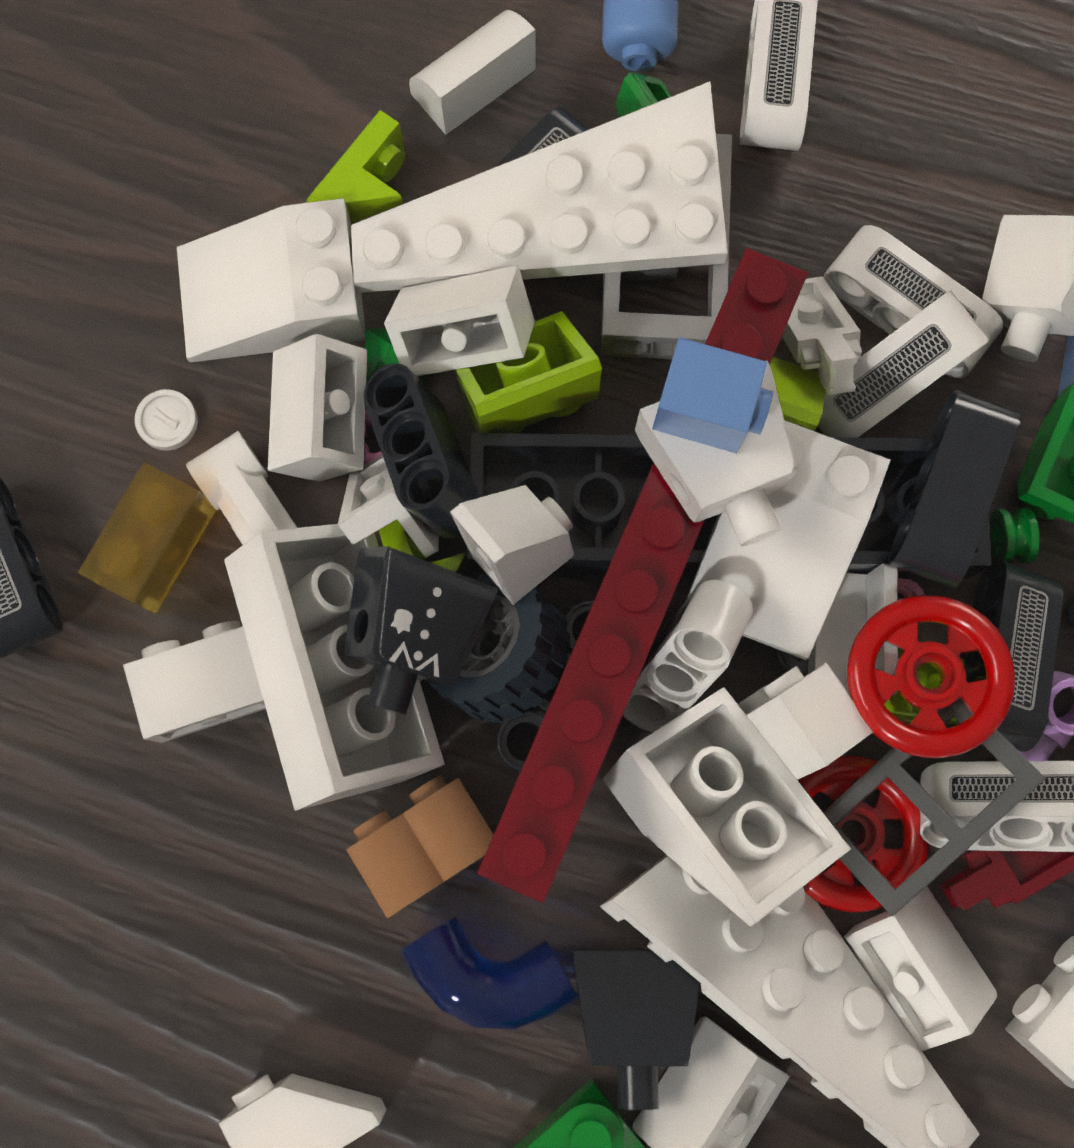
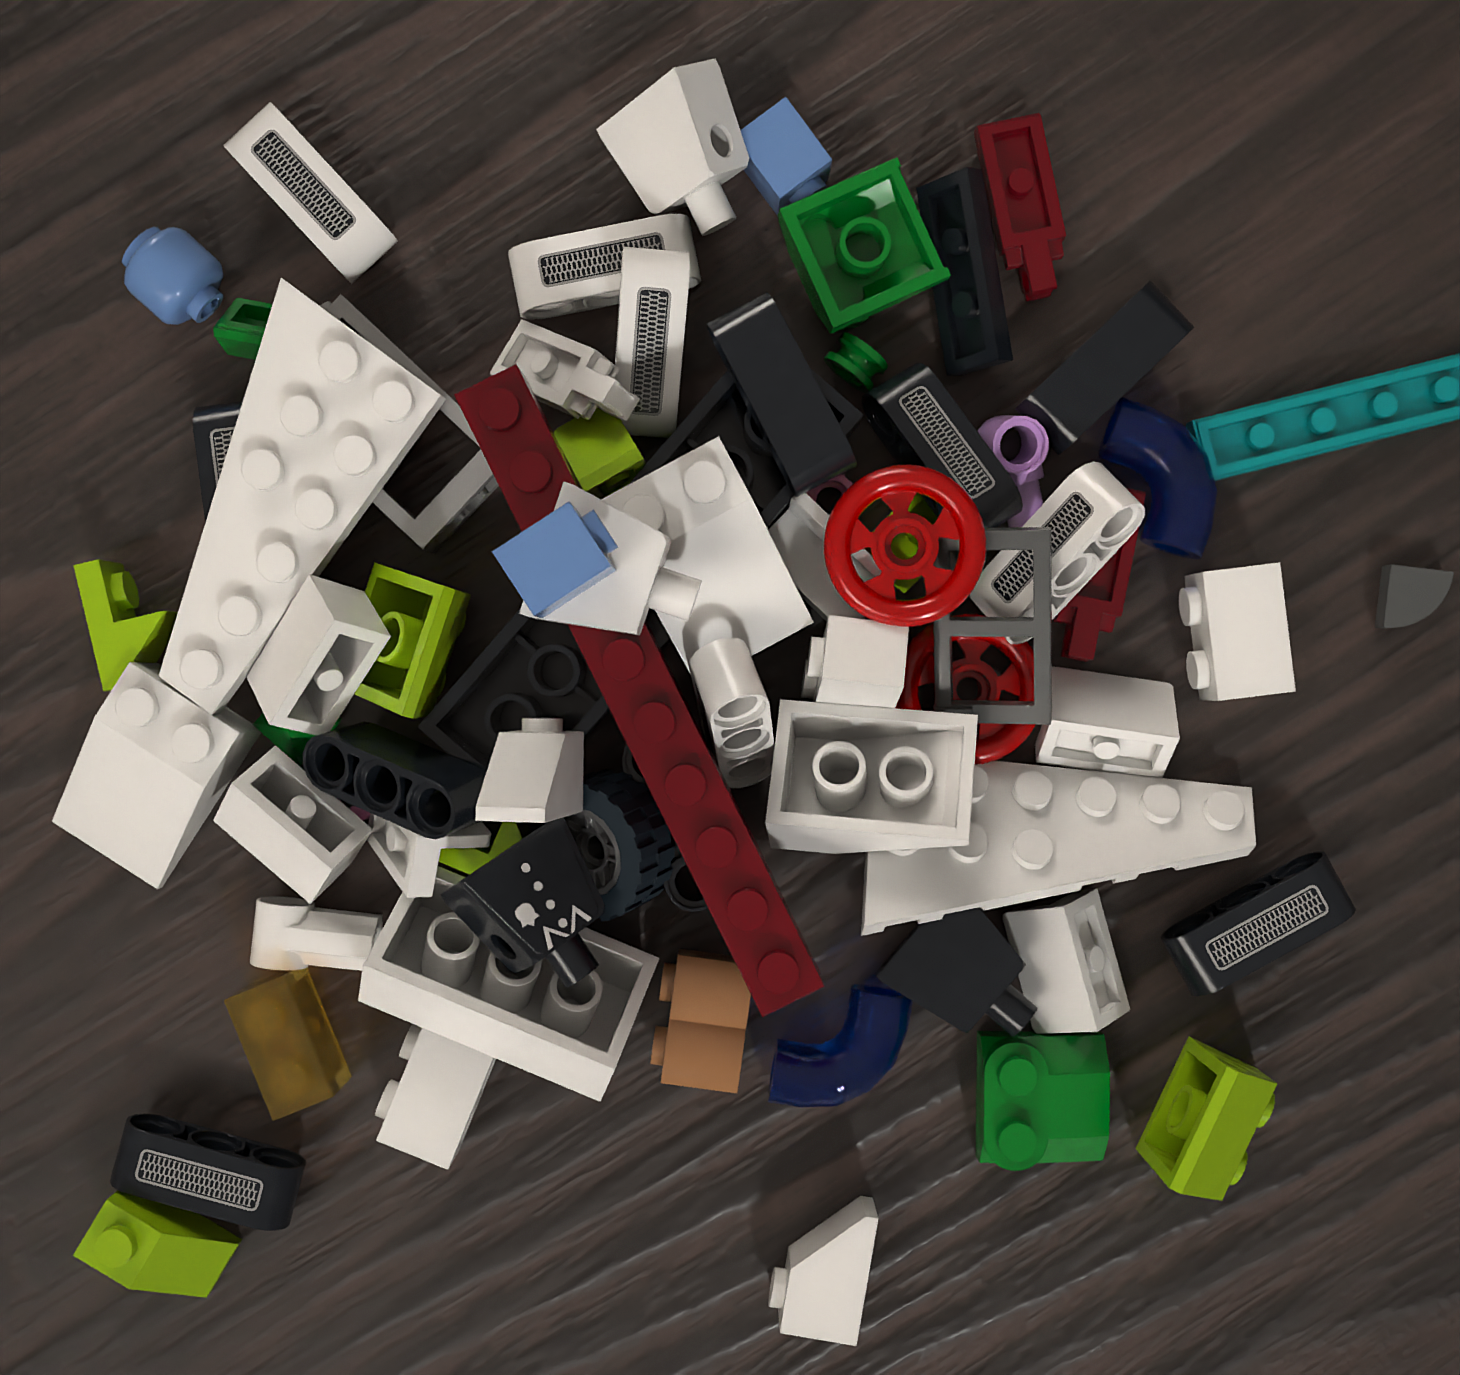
camera: 55 degrees left, 10 degrees up
(166, 420) = (196, 945): white piece -> none
(476, 70) = (100, 448): white brick -> none

